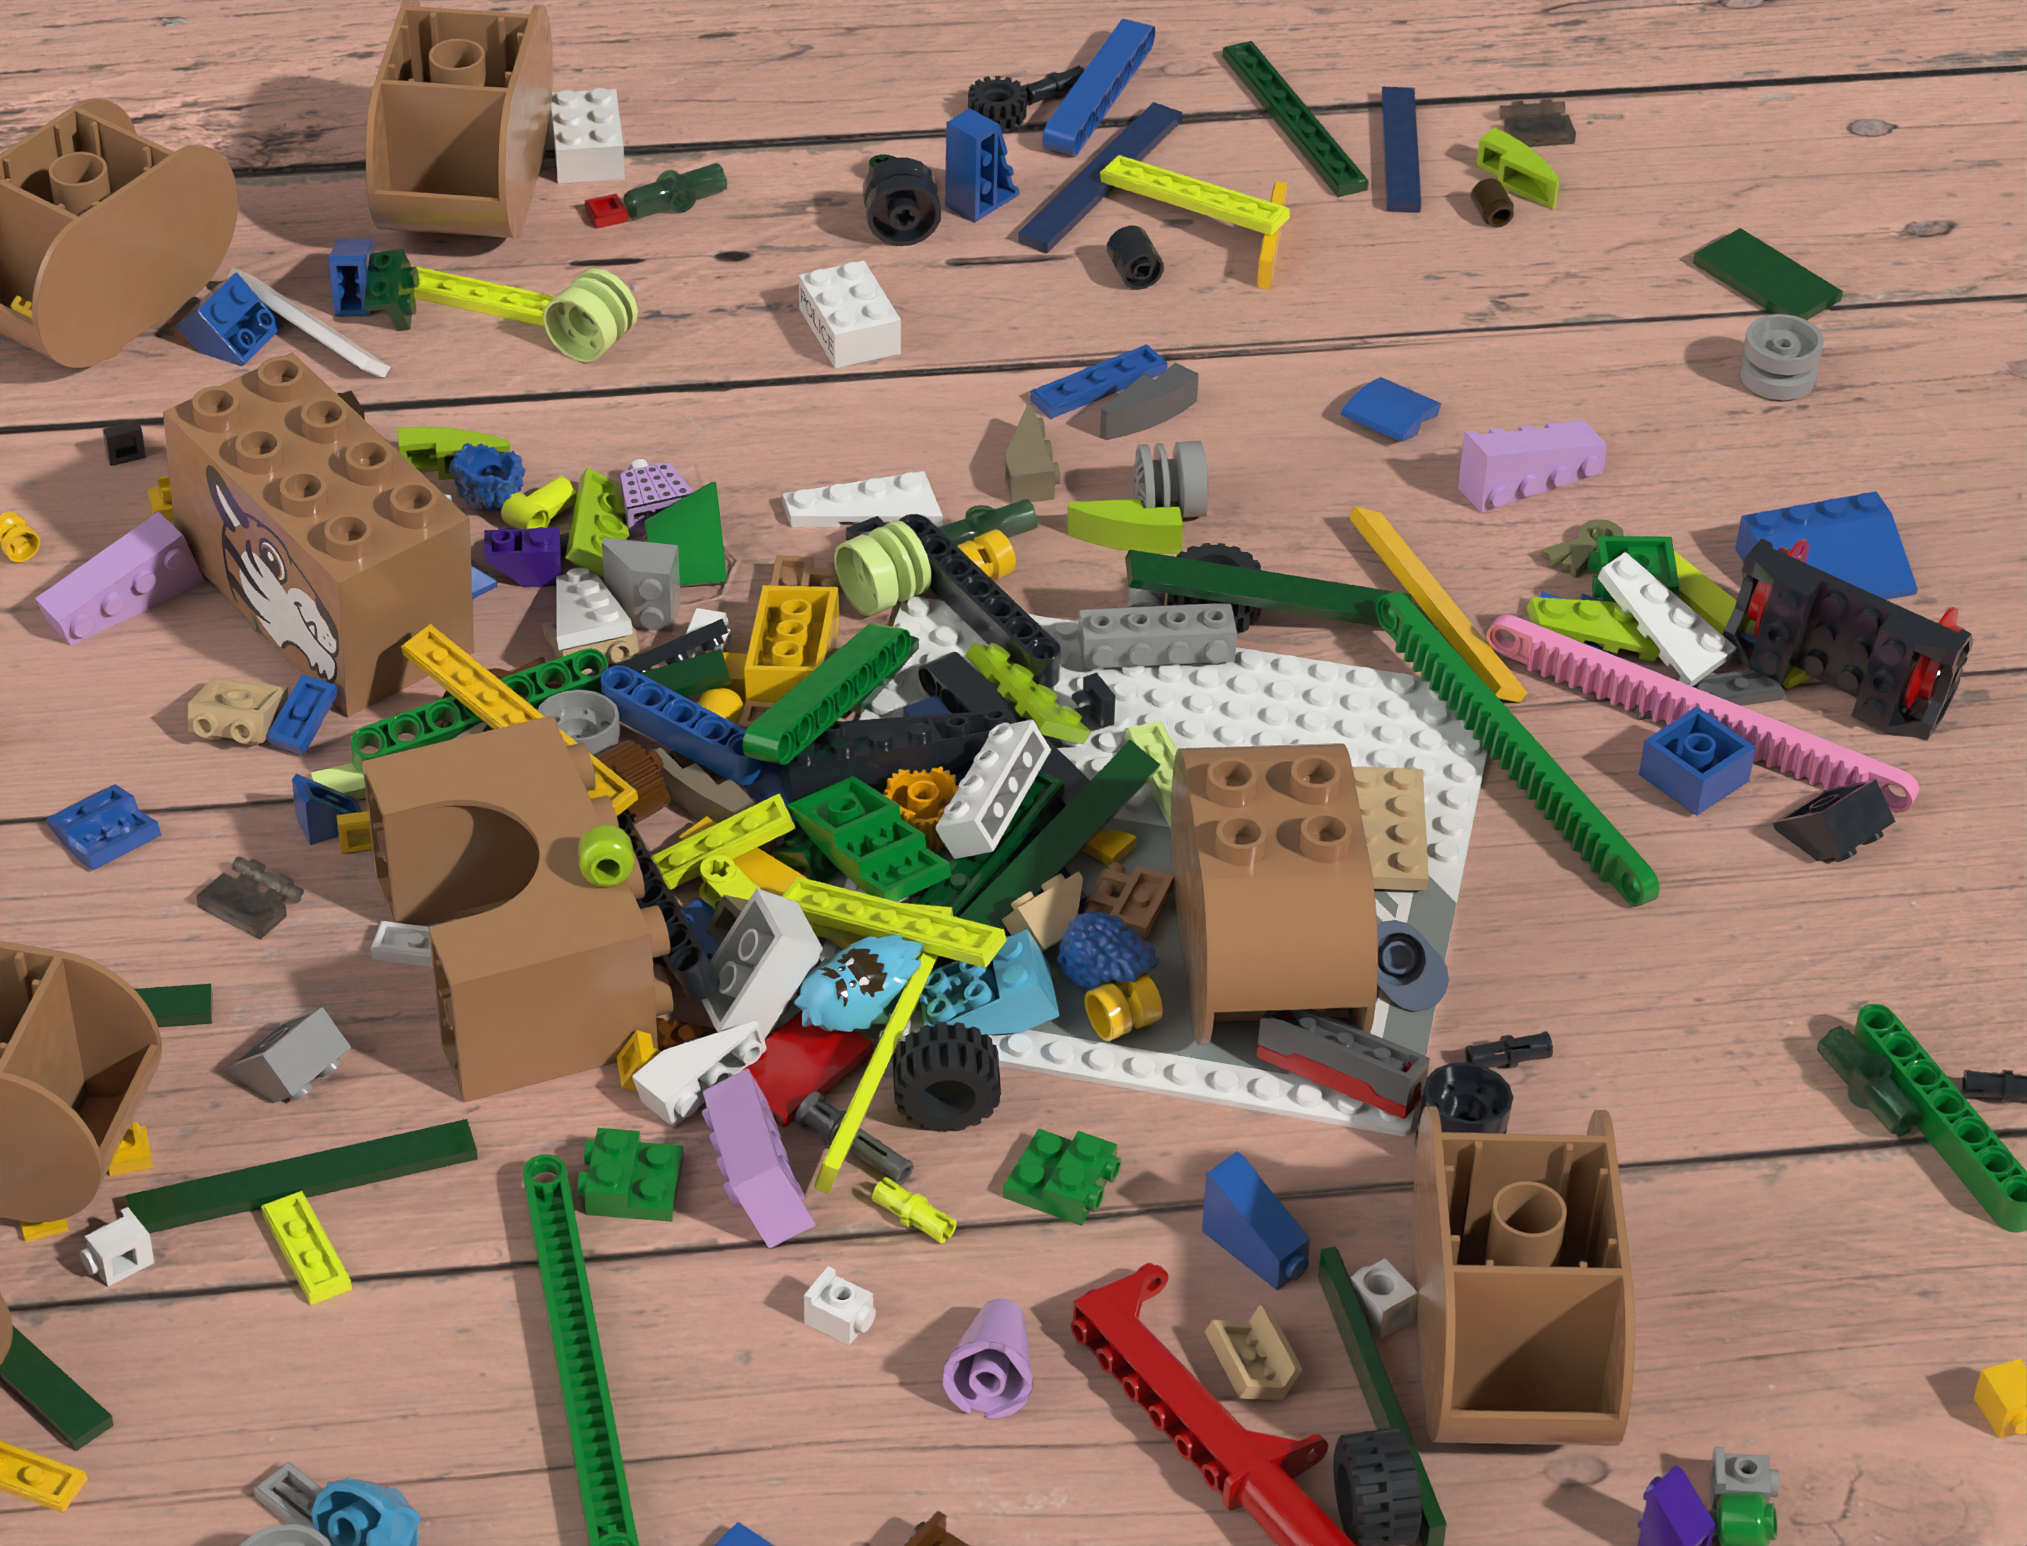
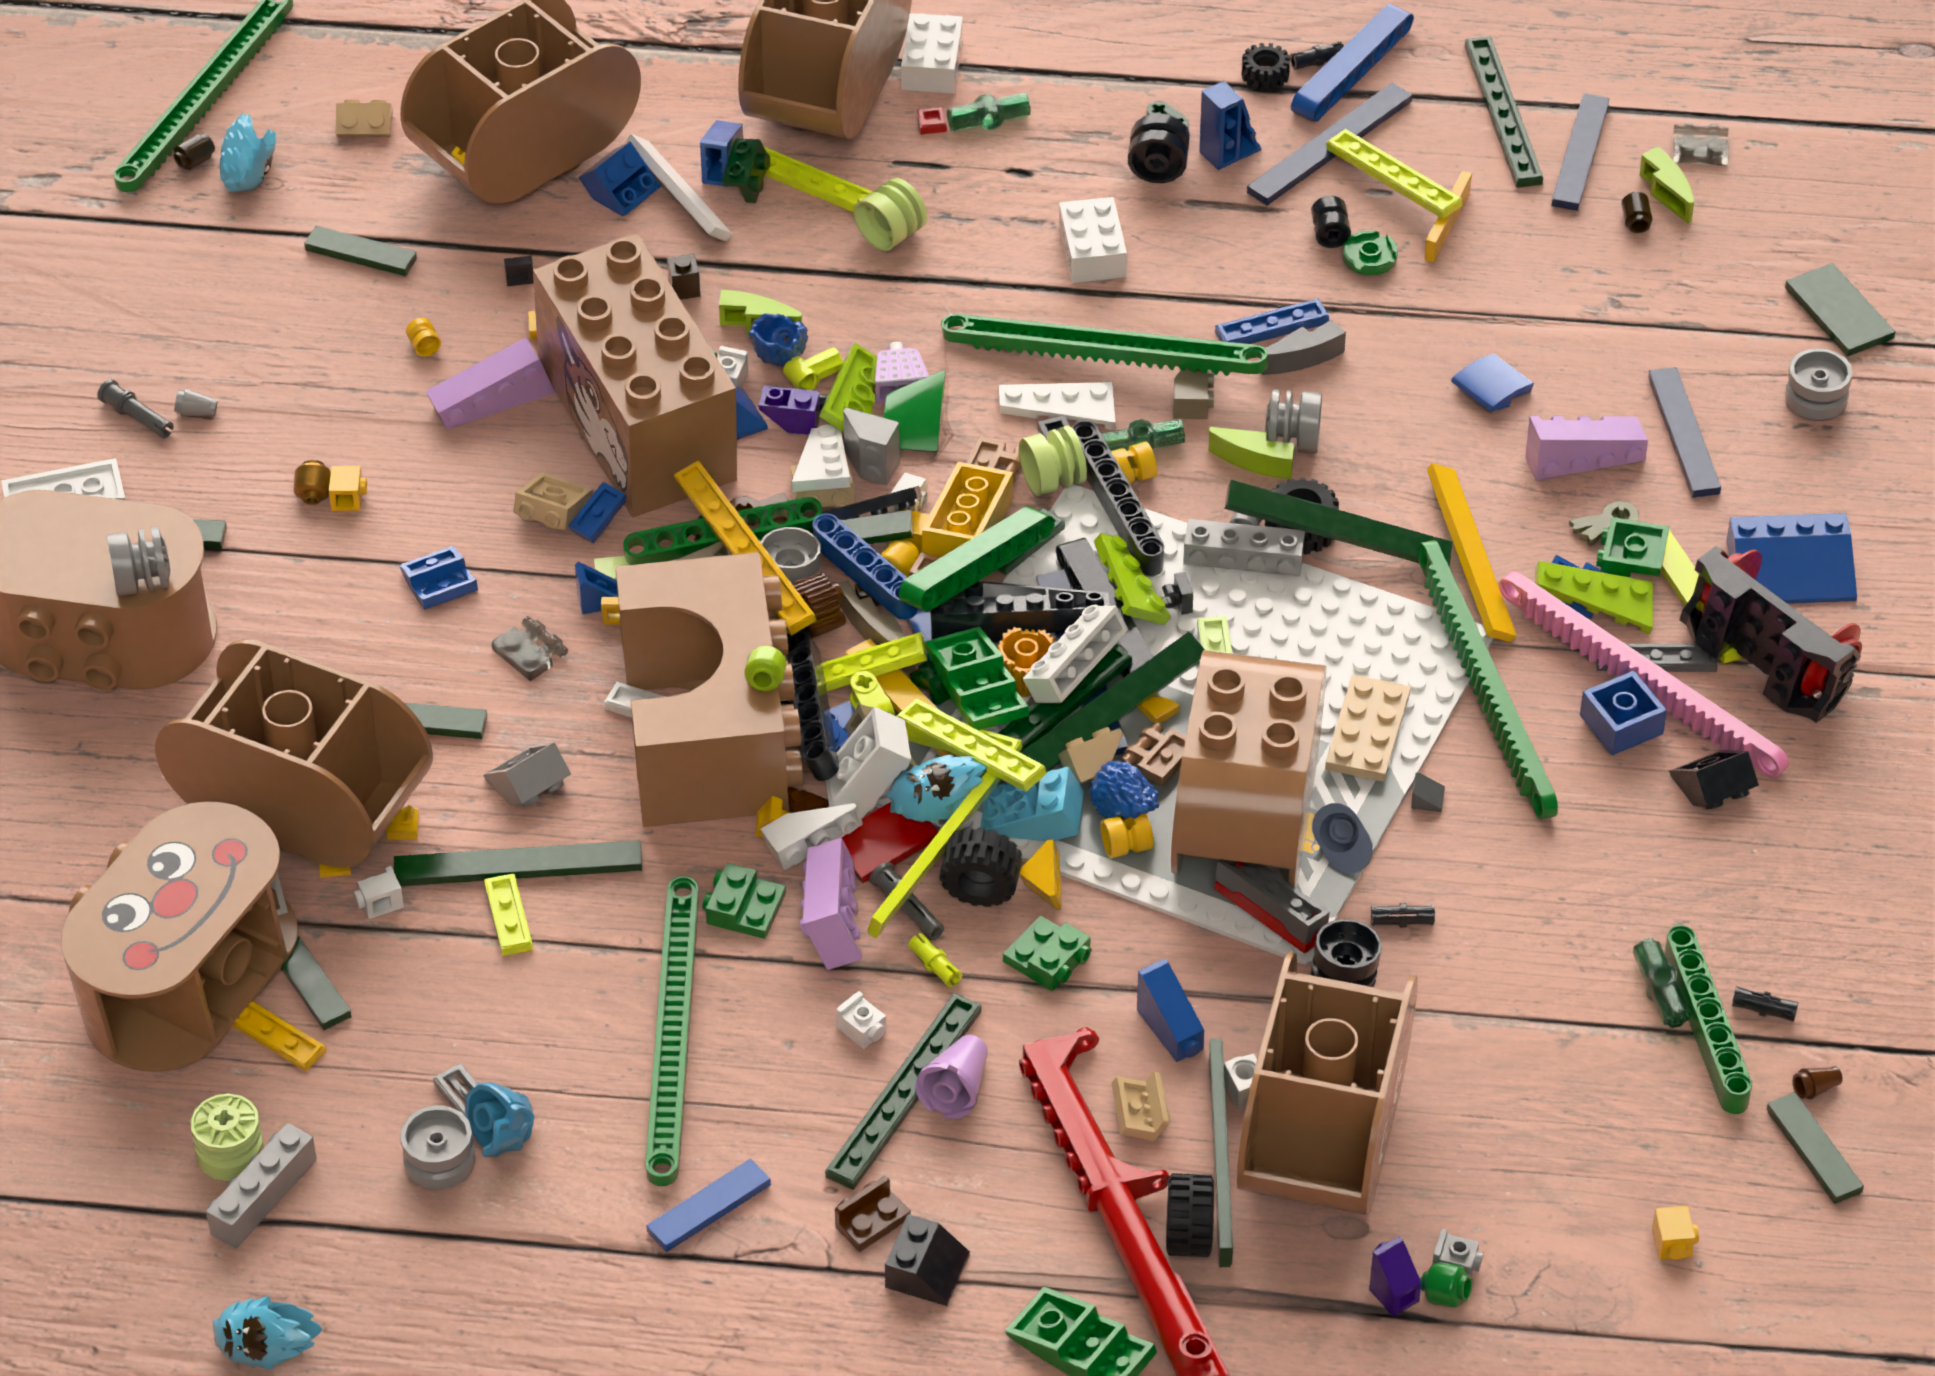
camera: 15 degrees right, 5 degrees up
(905, 426) = (1105, 344): none -> green gear
(919, 1397) = (900, 1093): none -> tile
(1026, 1076) = (1043, 874): none -> yellow slope
(1192, 286) = (1370, 252): none -> green plate
(1484, 897) = (1427, 794): none -> dark grey slope
(1640, 434) = (1684, 432): none -> tile
(1675, 628) = (1645, 603): white wing -> none

